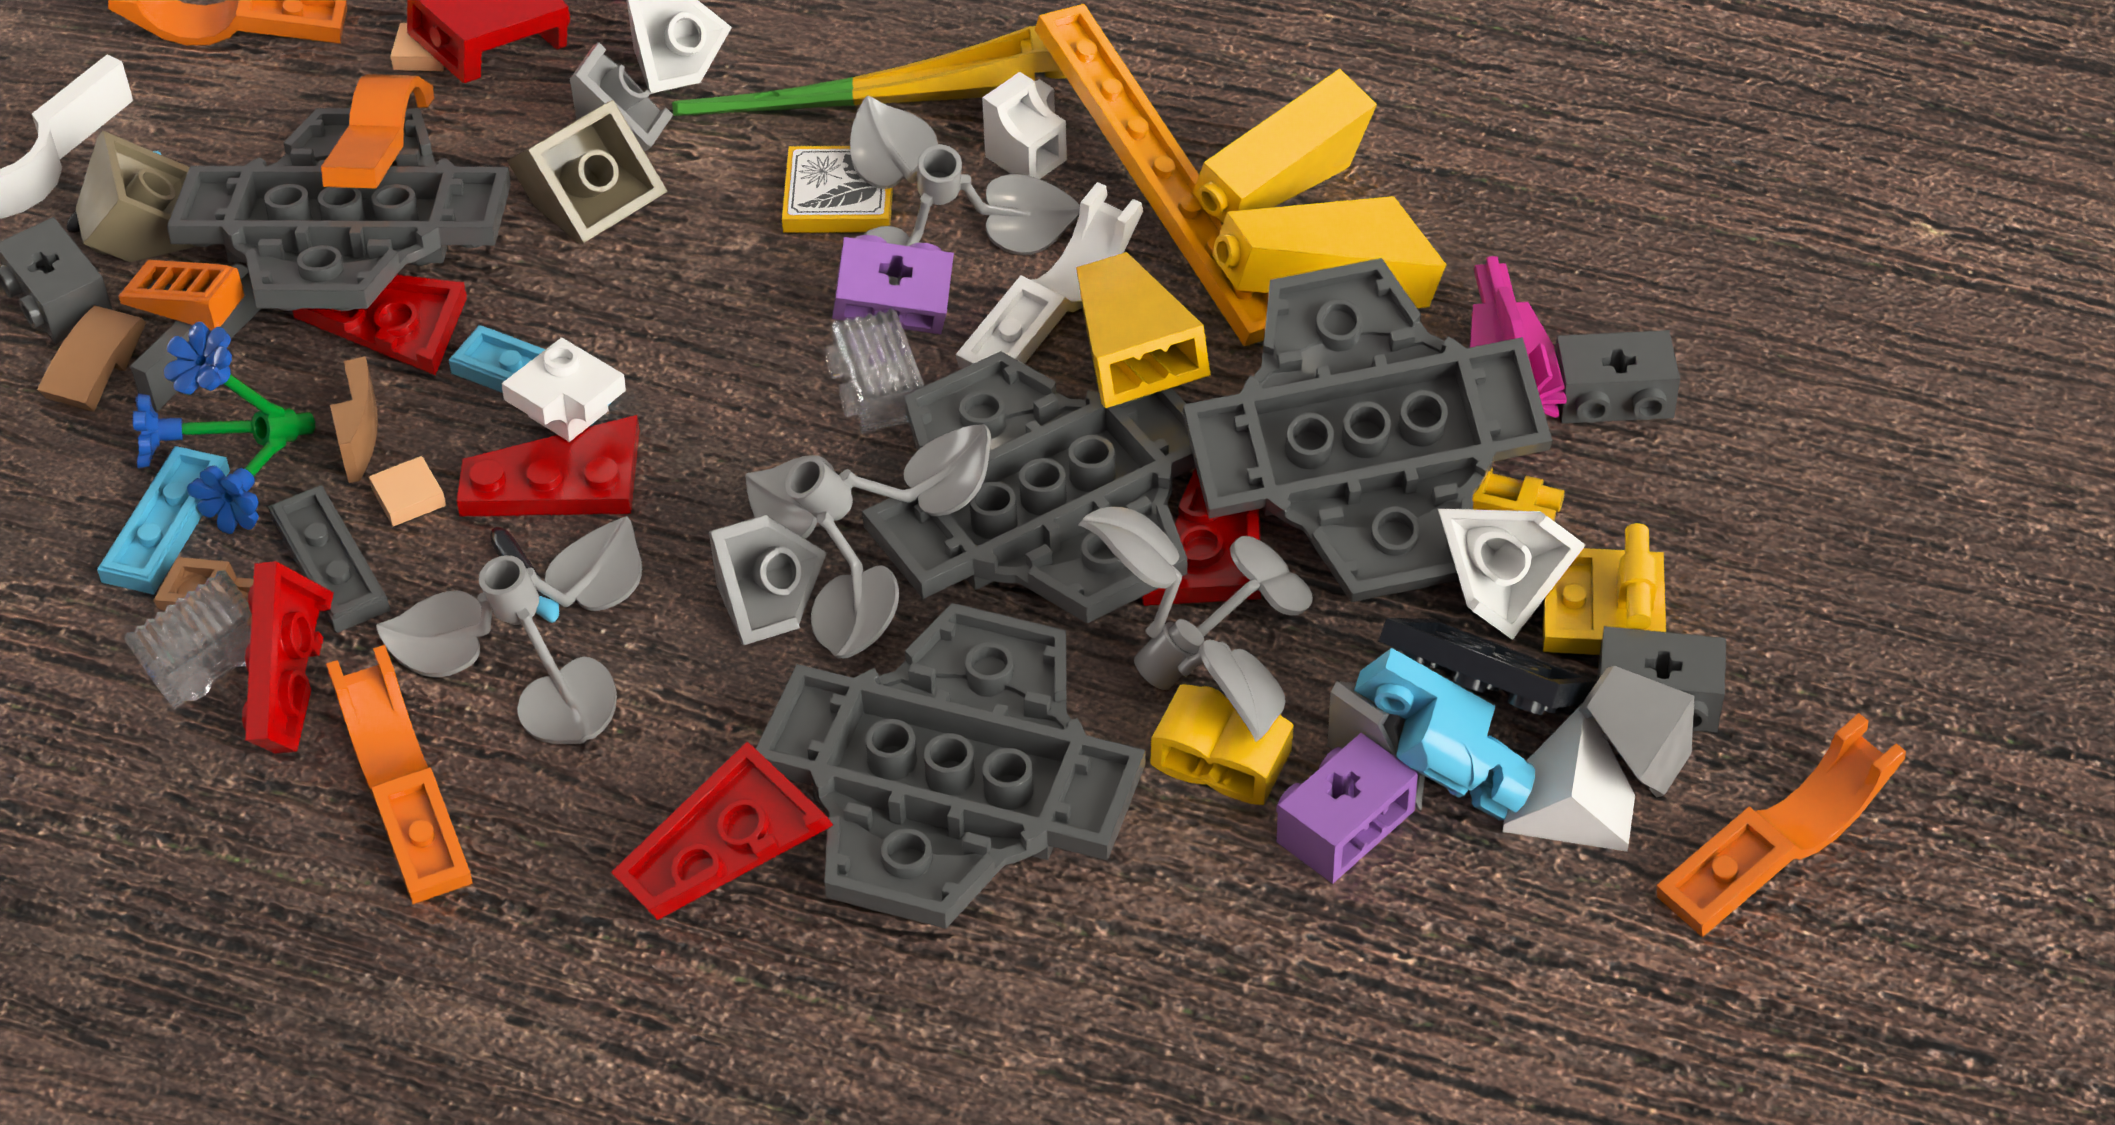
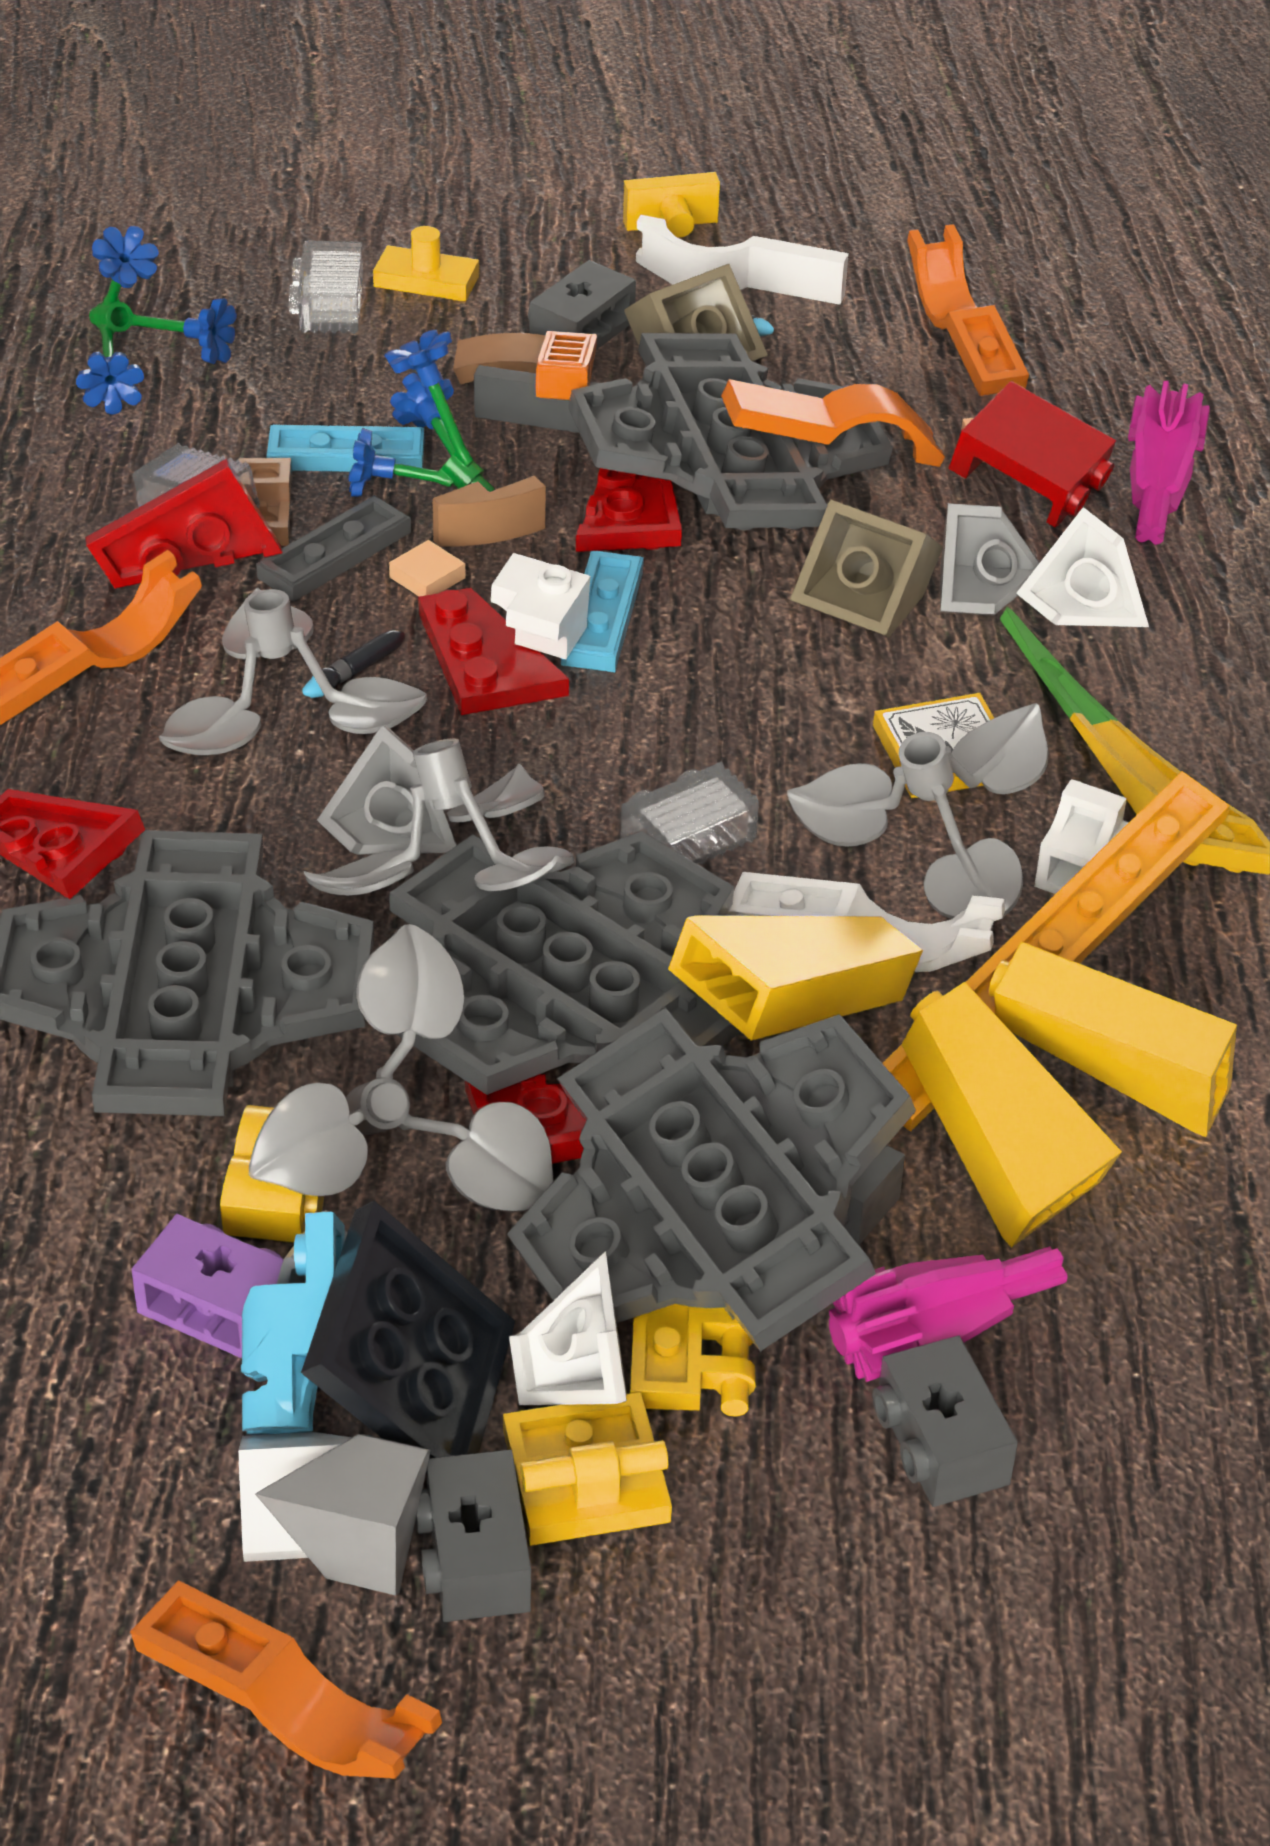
camera: 70 degrees right, 5 degrees down
(921, 288) = (796, 793): medium lavender brick -> none

